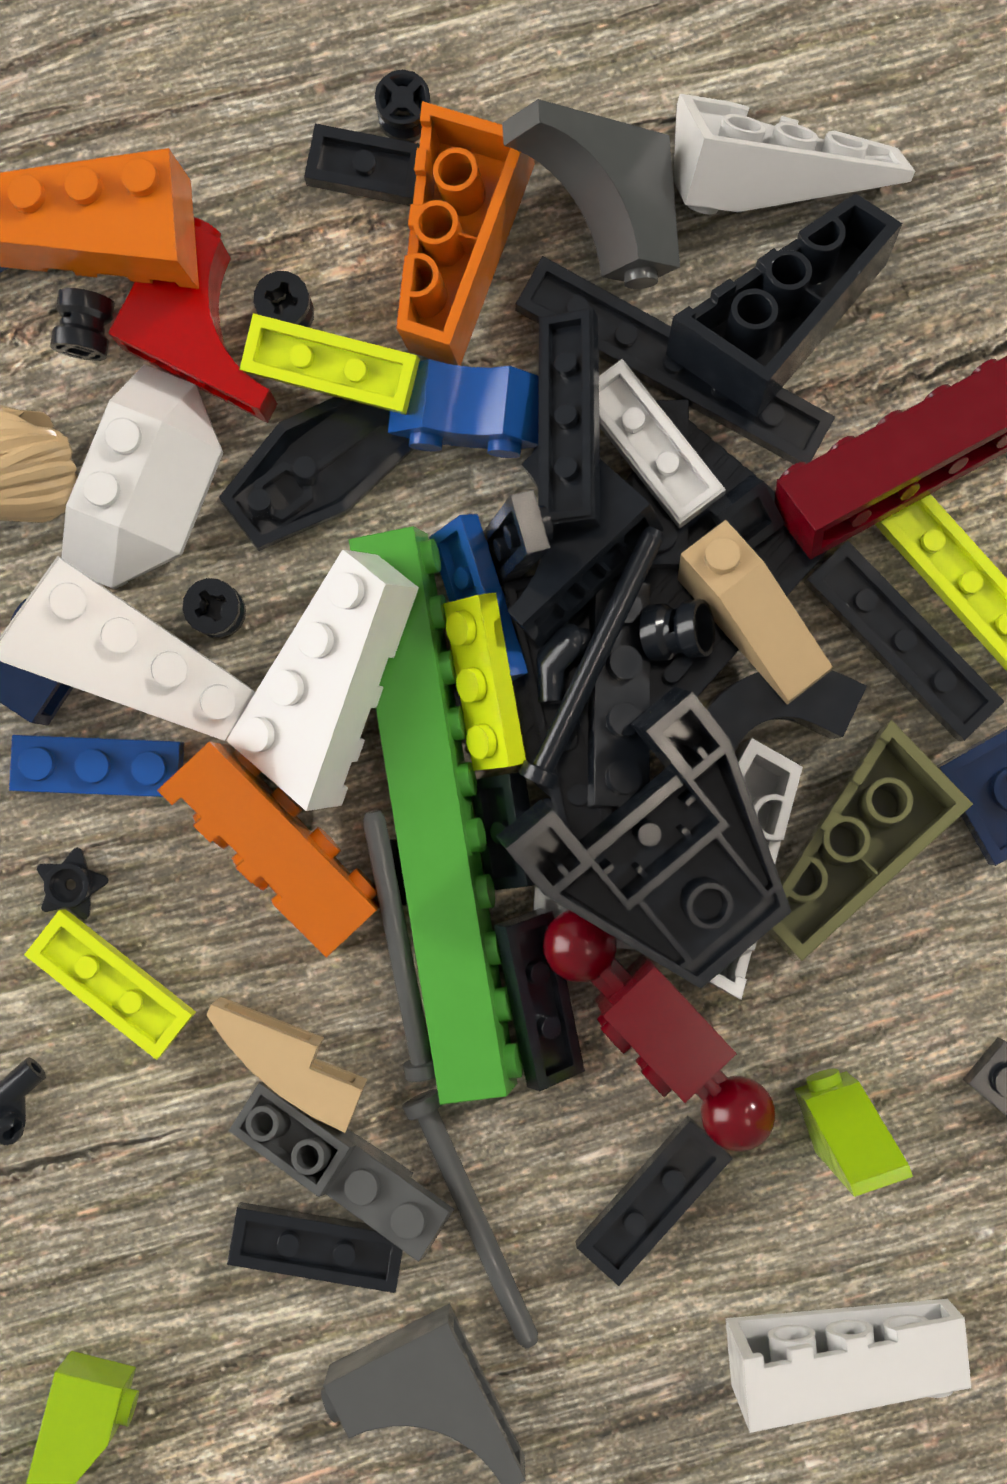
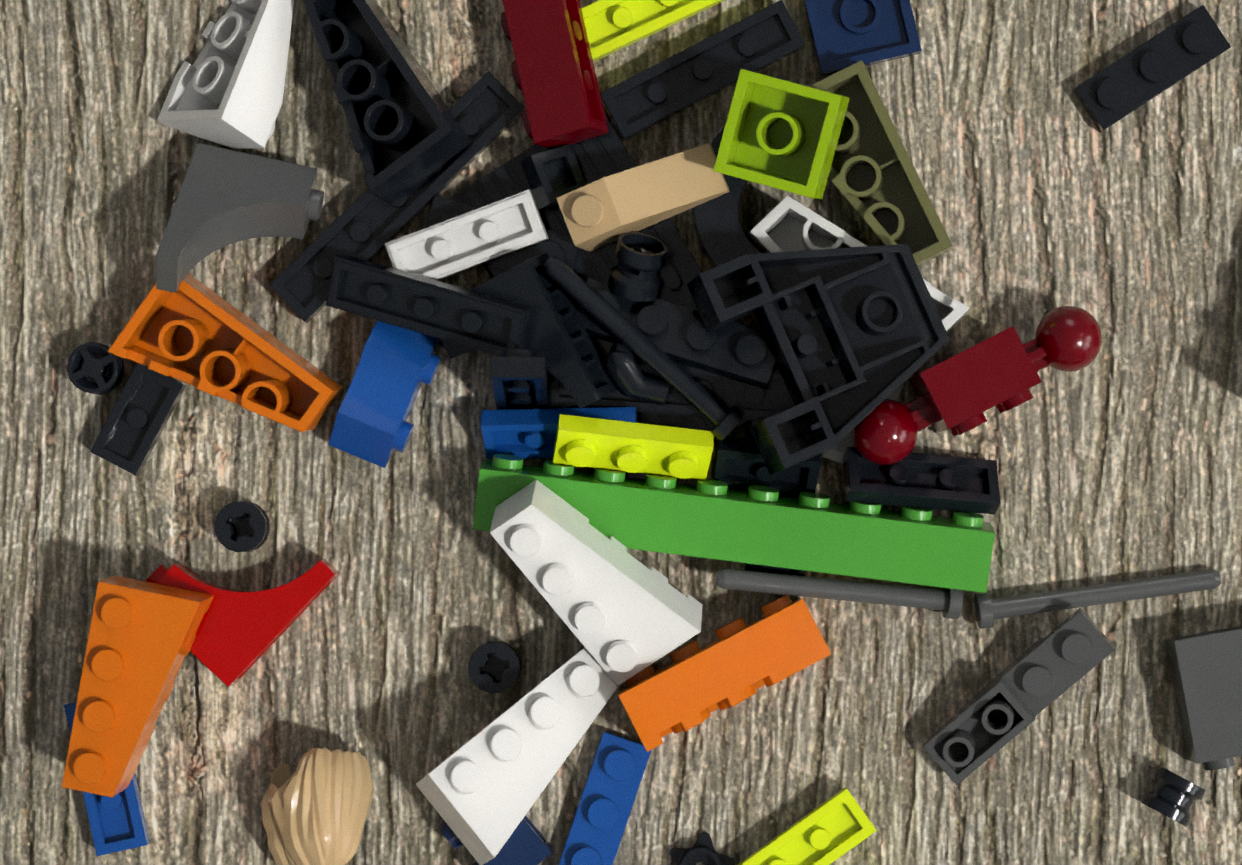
camera: 70 degrees left, 0 degrees up
(82, 324) = (207, 710): black wheel -> none
(141, 480) = (363, 695): white wedge -> none
(283, 1365) = (1173, 796): none -> black wheel
(287, 1062) = (911, 716): tan slope -> none
(312, 470) = (394, 540): black piece -> none
(313, 1248) = (1080, 739): black plate -> none
(329, 363) = (314, 500): neon yellow plate -> none
(653, 1201) = (1124, 433): black plate -> none
(850, 1132) = (1107, 249): lime slope -> none
(872, 738) = (781, 134): none -> lime brick

